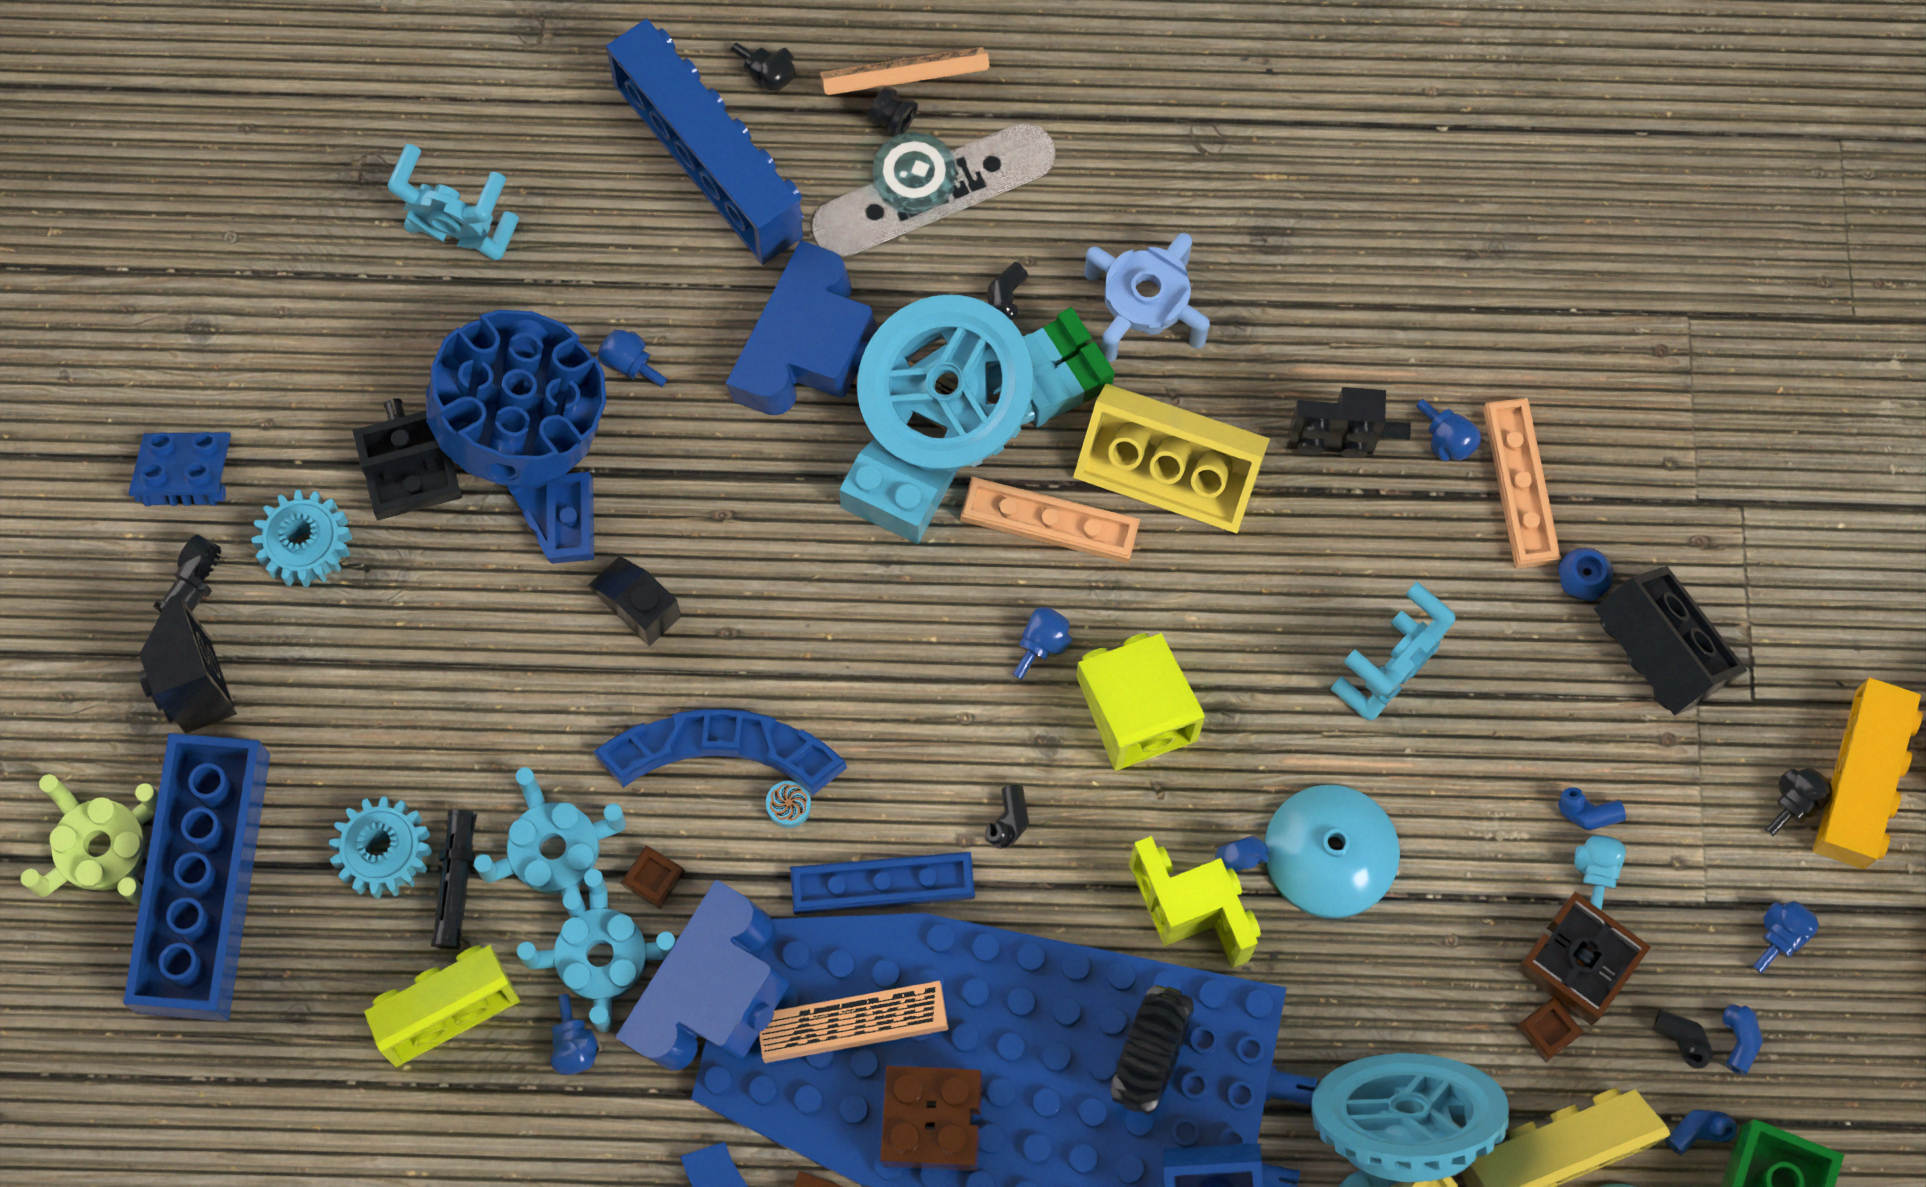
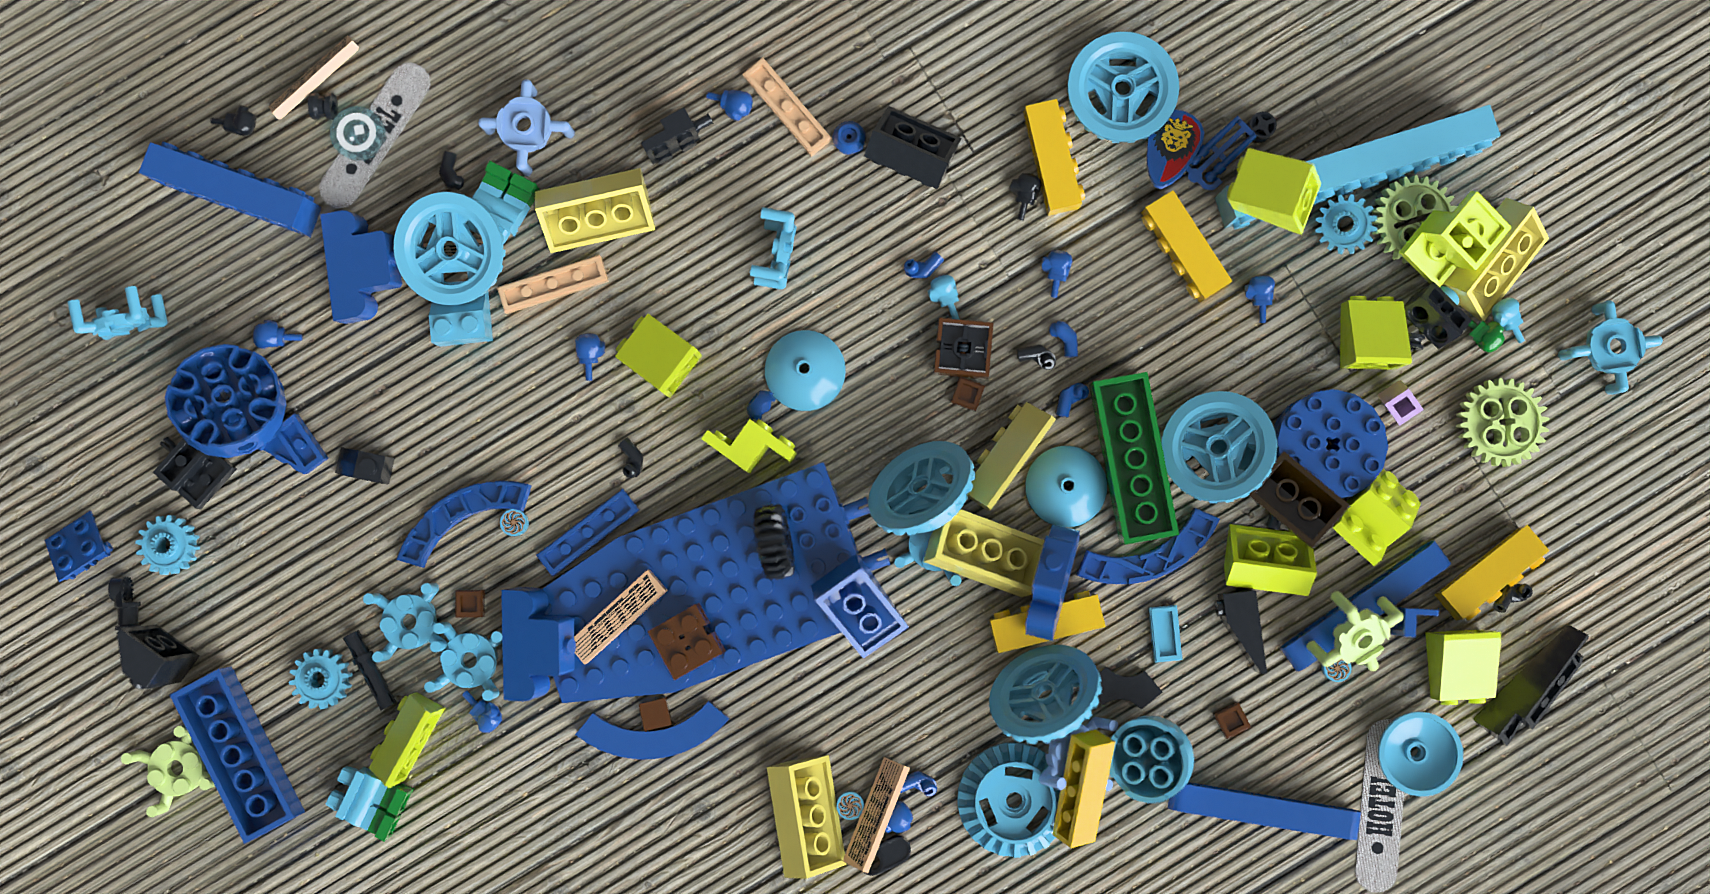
camera: 20 degrees left, 15 degrees up
(314, 1055) = (369, 802): none -> medium azure hips

